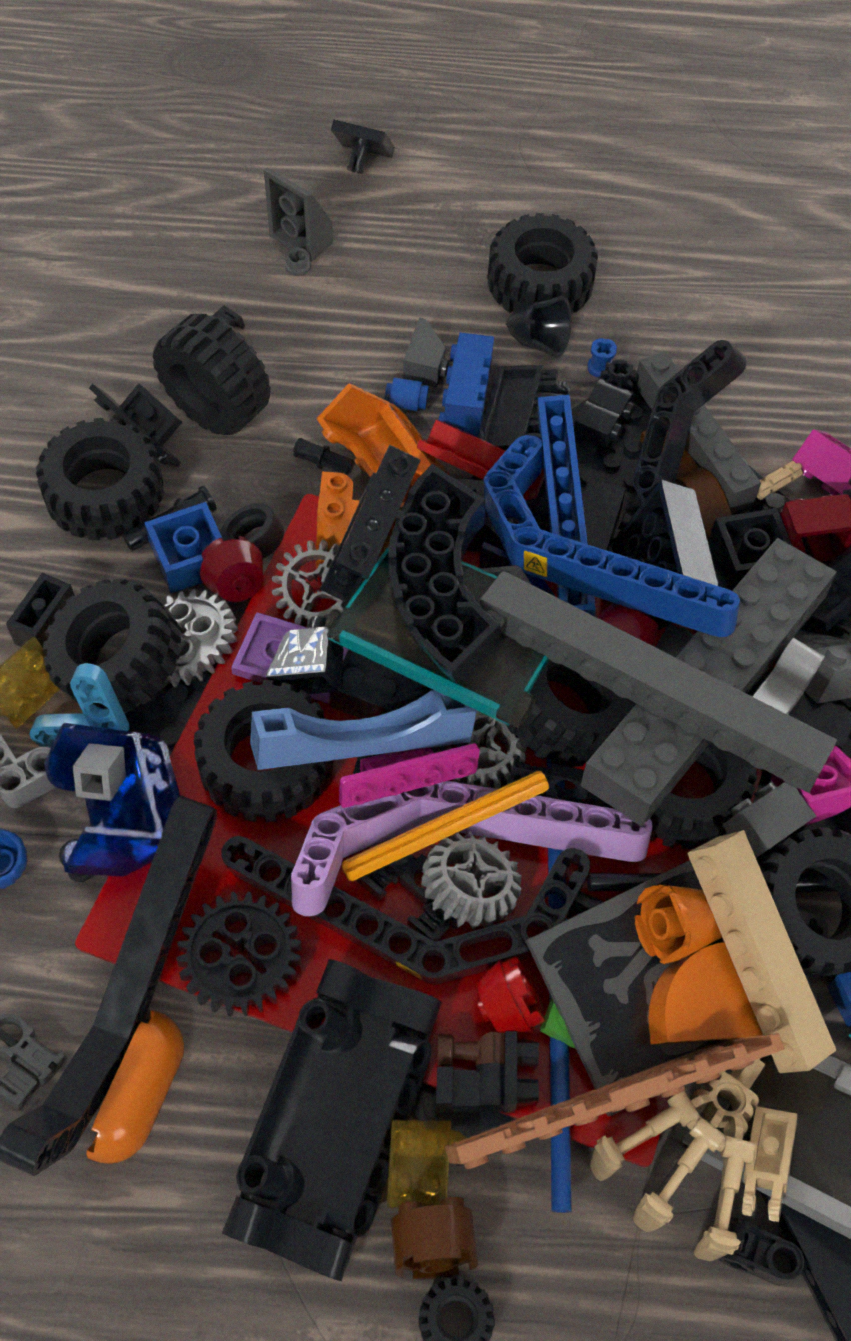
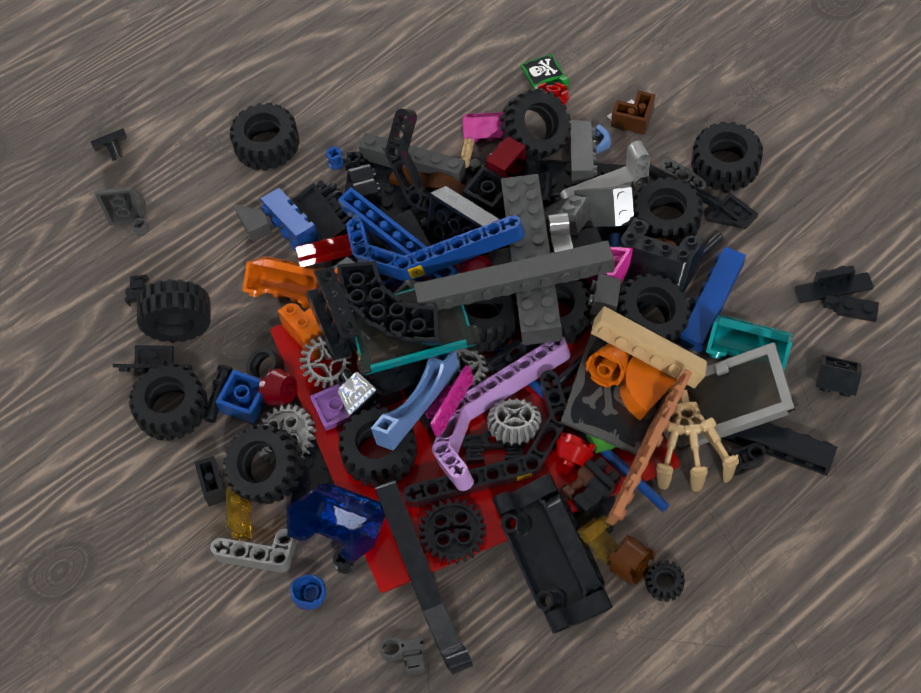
camera: 35 degrees left, 0 degrees up
(85, 676) = (269, 524): dark azure beam -> none
(99, 772) = (319, 515): light grey brick -> none
(137, 1090) = (464, 619): orange brick -> none
(322, 456) = (256, 307): black axle -> none
(407, 394) = (264, 247): blue brick -> none
(445, 825) = (485, 407): light orange axle -> none
(543, 325) = (292, 165): black helmet -> none
(774, 1141) = (723, 420): tan hinge -> none

